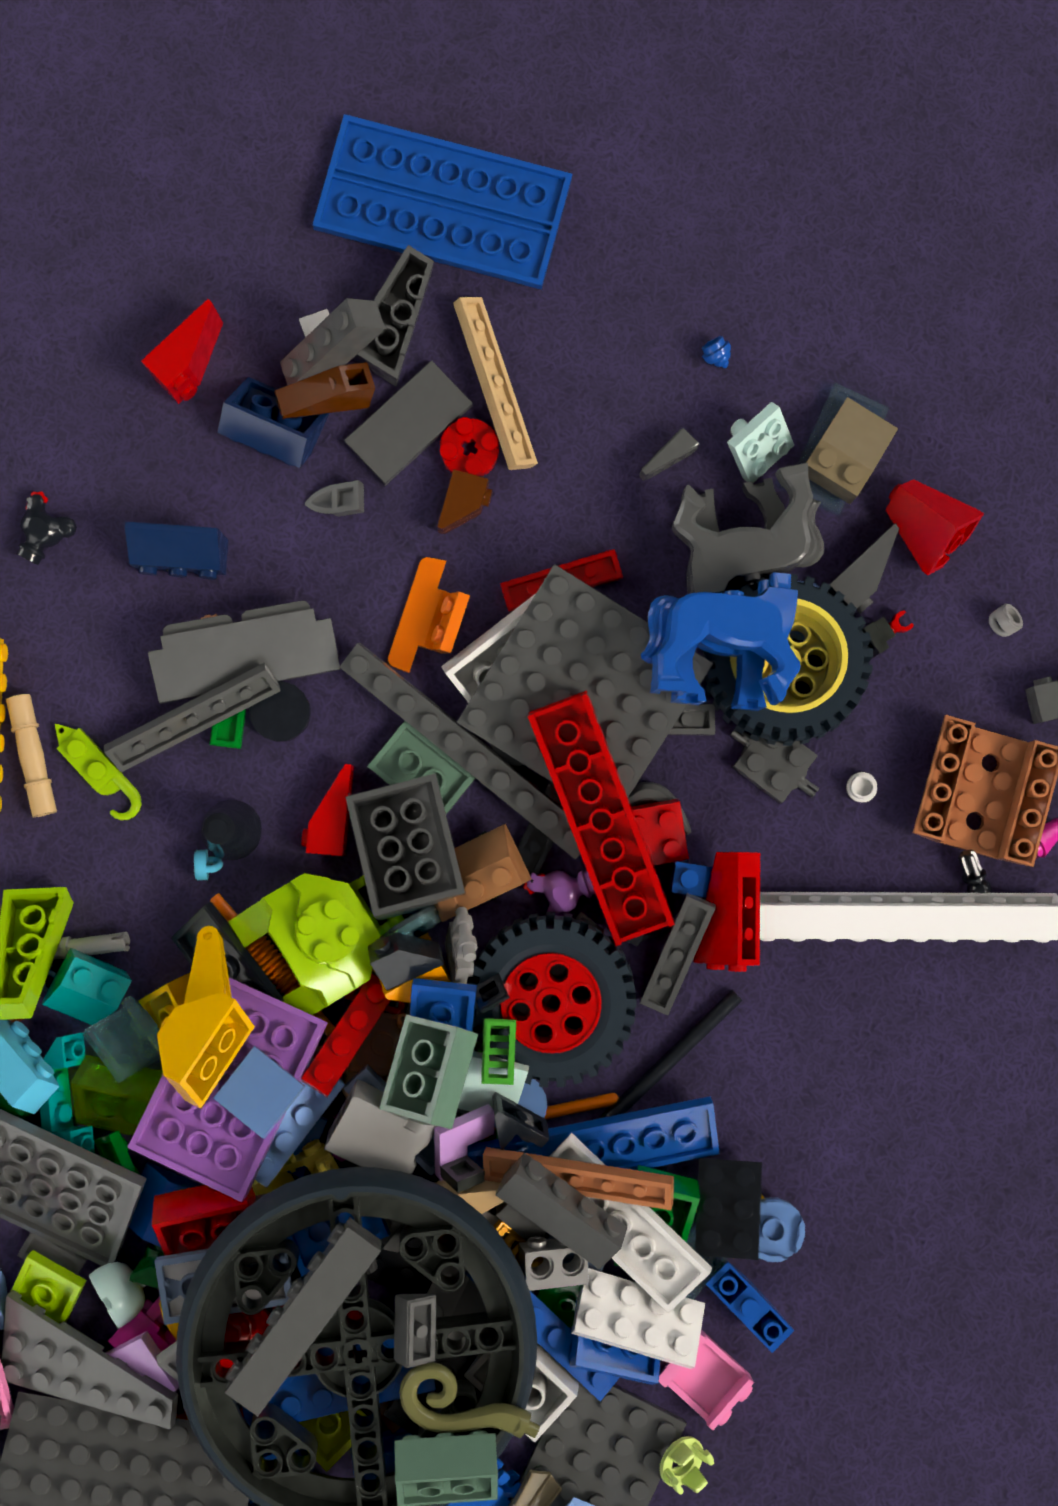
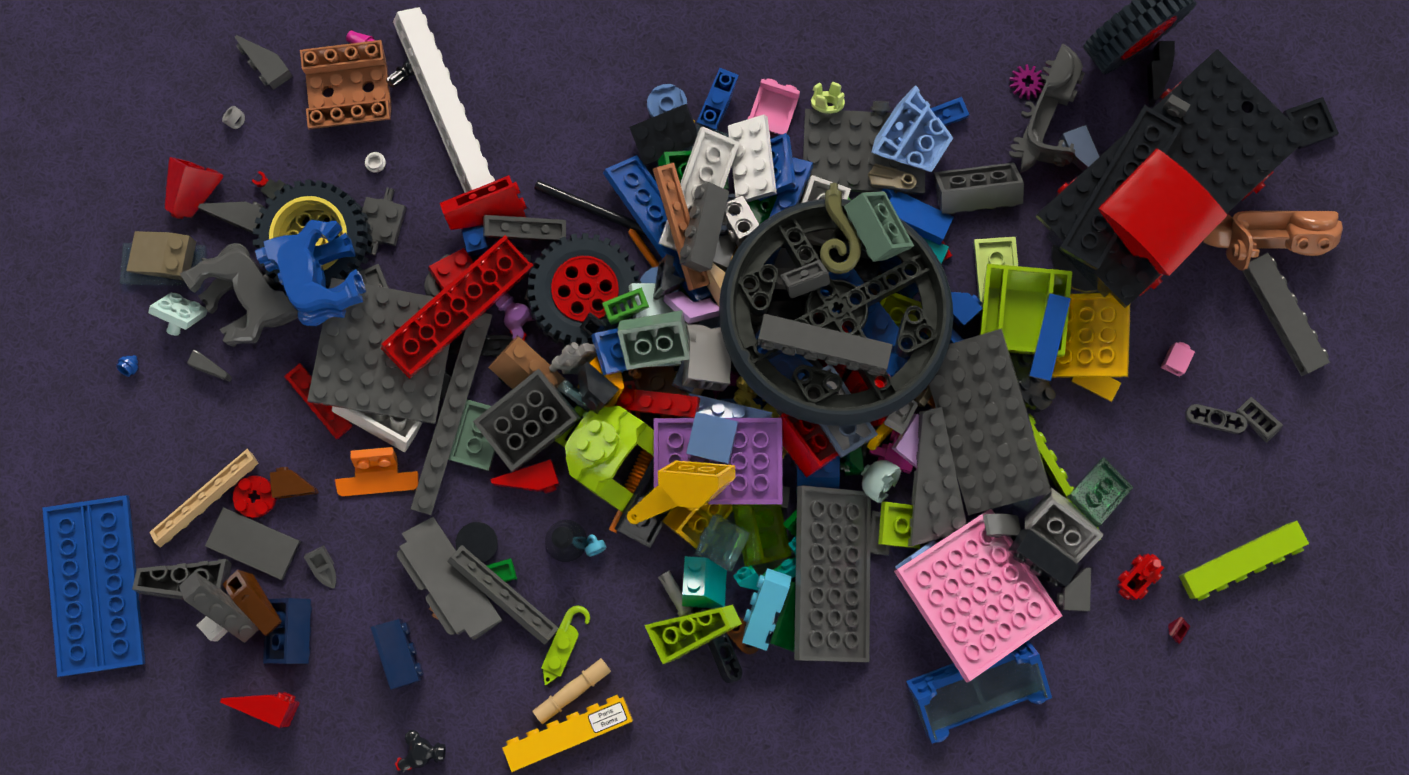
camera: 110 degrees left, 5 degrees down
(462, 1174) = (710, 296): pearl dark grey plate -> none

